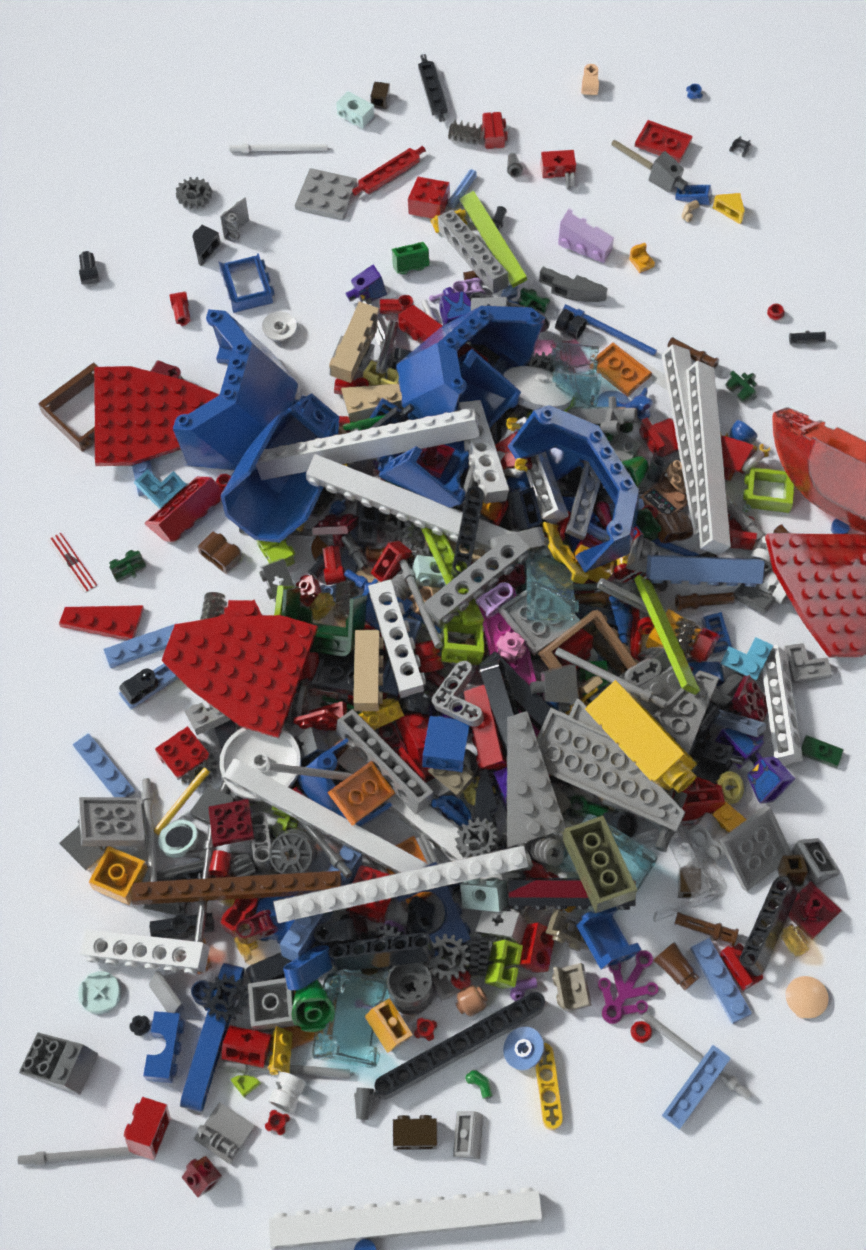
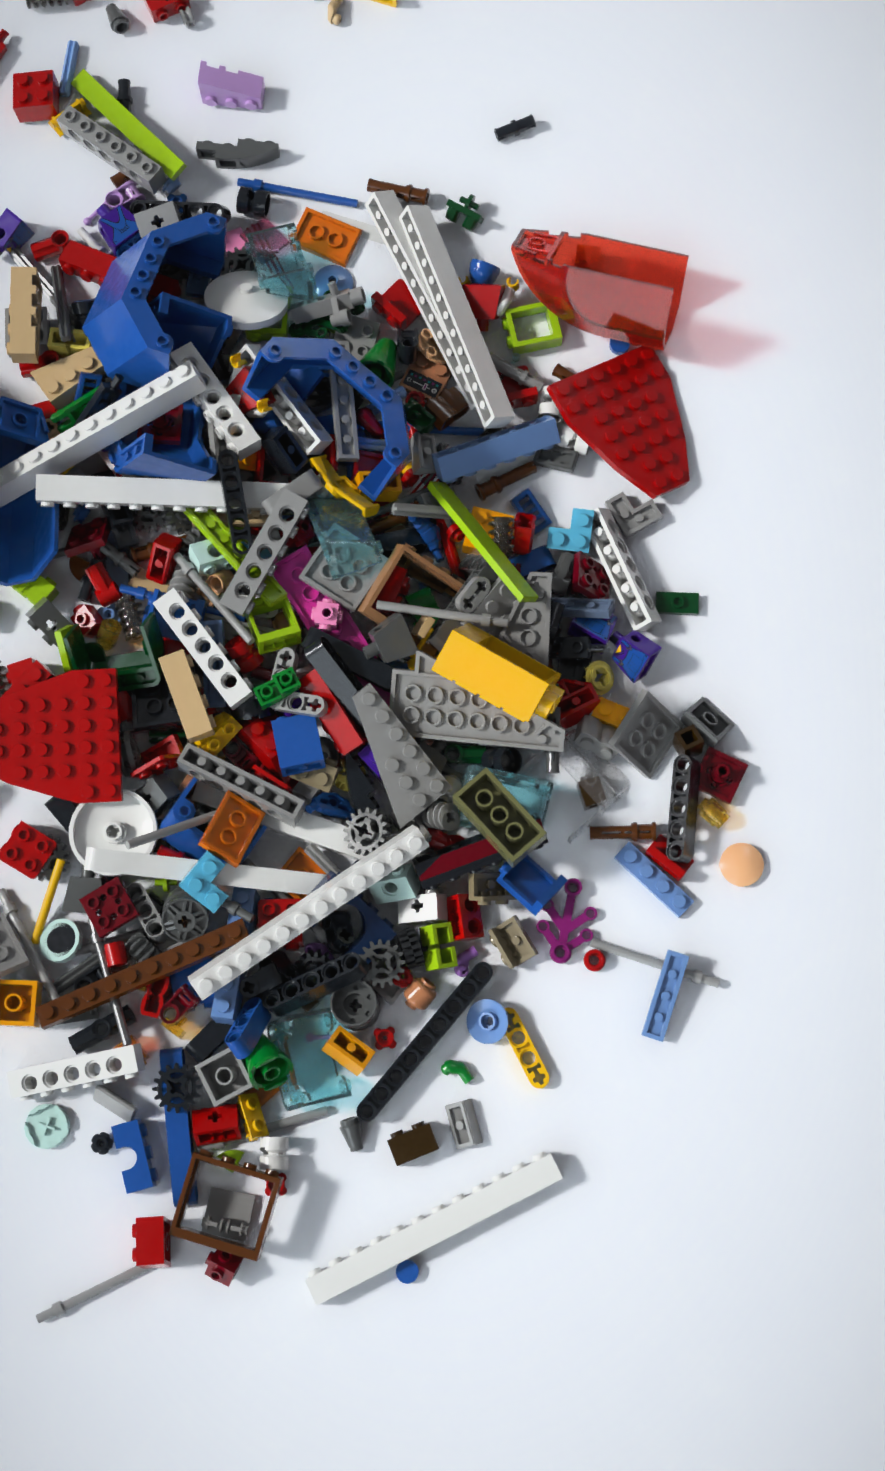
camera: 20 degrees left, 15 degrees up
(59, 1062) = (36, 1211): dark grey slope -> none
(194, 1095) = (217, 1242): none -> reddish brown window
(197, 991) = (146, 1086): dark blue wheel -> none
(204, 720) = (33, 806): light grey plate -> none
(315, 826) = (199, 882): none -> medium azure plate
(410, 258) = (44, 180): green brick -> none
(445, 691) = (278, 688): none -> green slope
(492, 601) = (291, 568): lavender piece -> none
(530, 299) = (200, 189): dark green hips -> none
(640, 258) = (301, 90): light orange bracket -> none
(641, 403) = (362, 275): blue animal -> none
(677, 966) = (607, 883): reddish brown plant -> none
(775, 311) = (470, 102): red plate -> none

